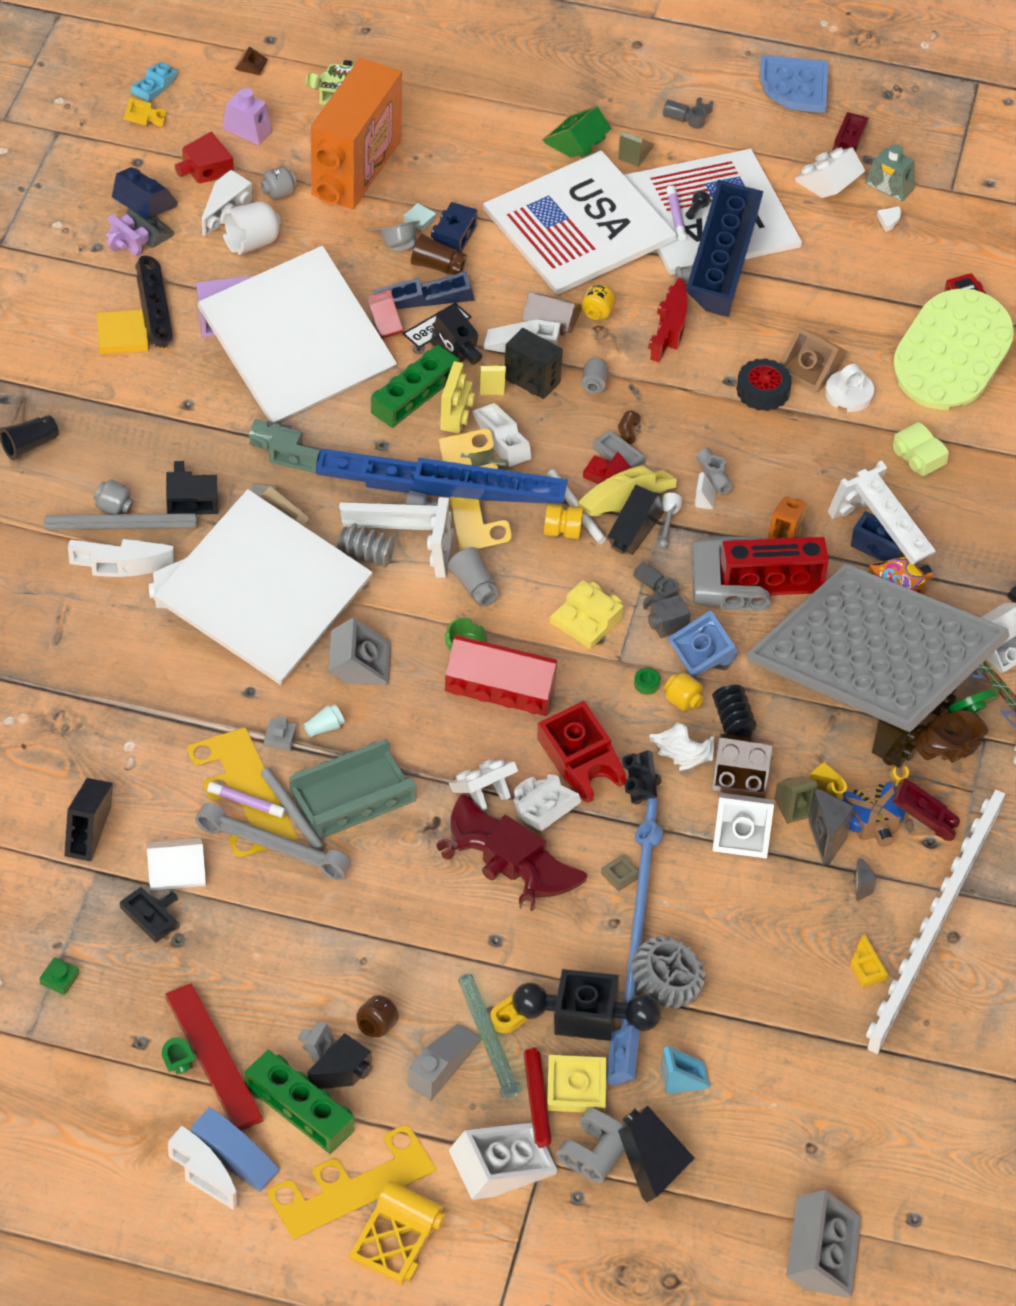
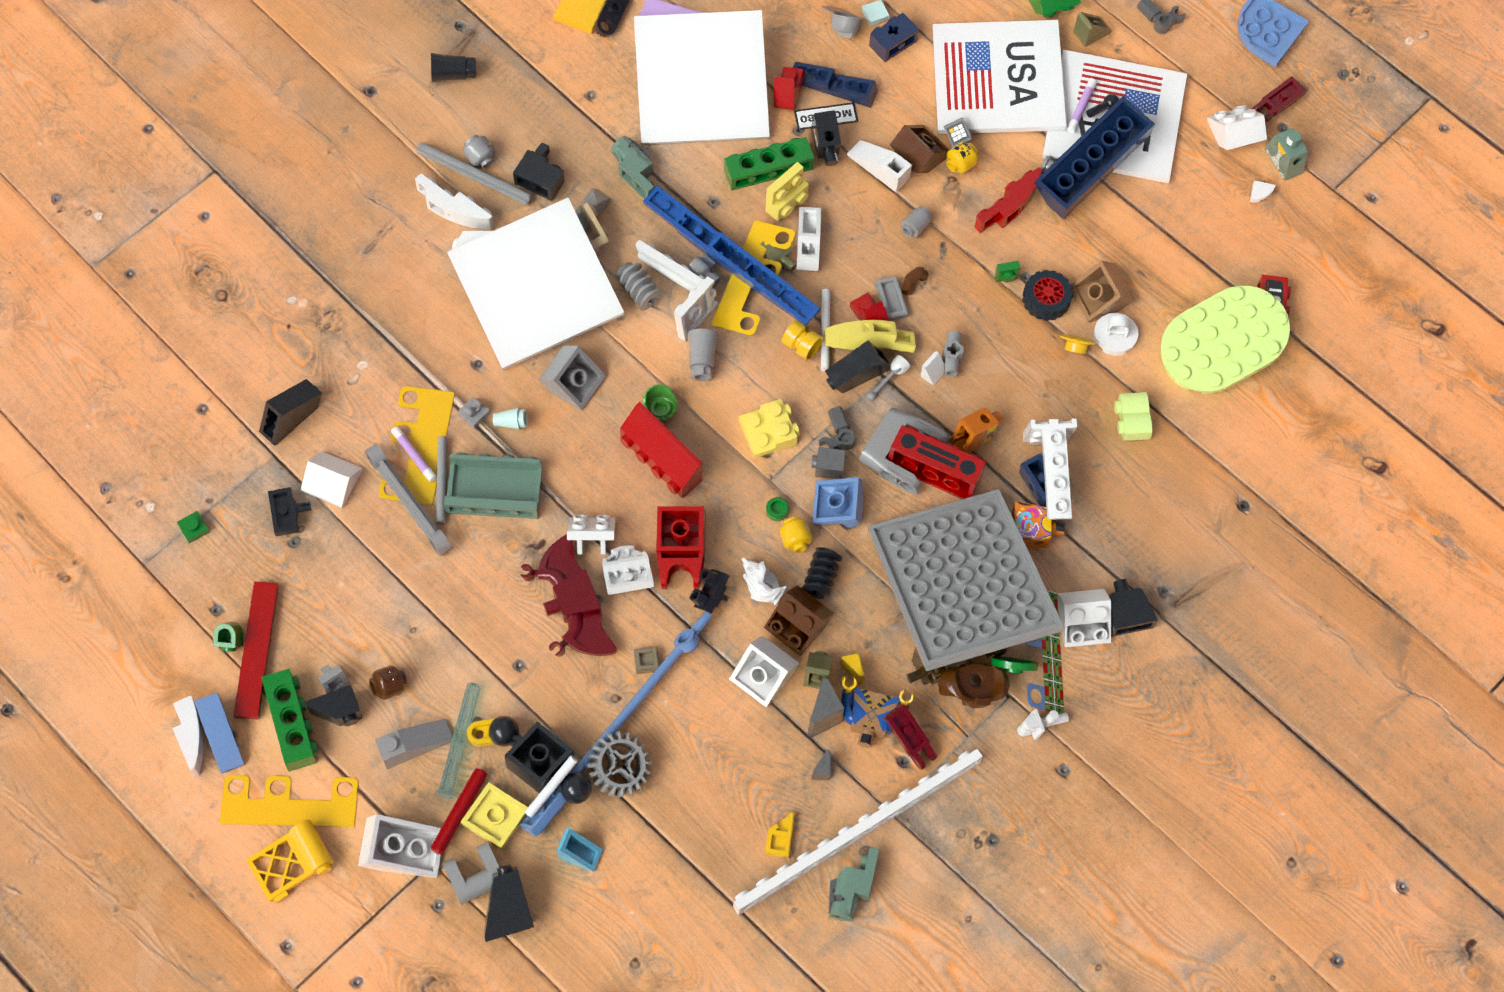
camera: 30 degrees right, 15 degrees up
(437, 256) = (862, 55): reddish brown plant -> none
(491, 379) = (833, 184): light yellow slope -> none
(533, 363) = (869, 189): pearl dark grey piece -> none
(578, 282) = (957, 132): none -> slope
(619, 1020) = (551, 786): none -> white bar
(712, 380) = (1007, 271): none -> green plate
(823, 411) = (1076, 343): none -> yellow piece
(969, 968) = (852, 886): none -> sand green plate

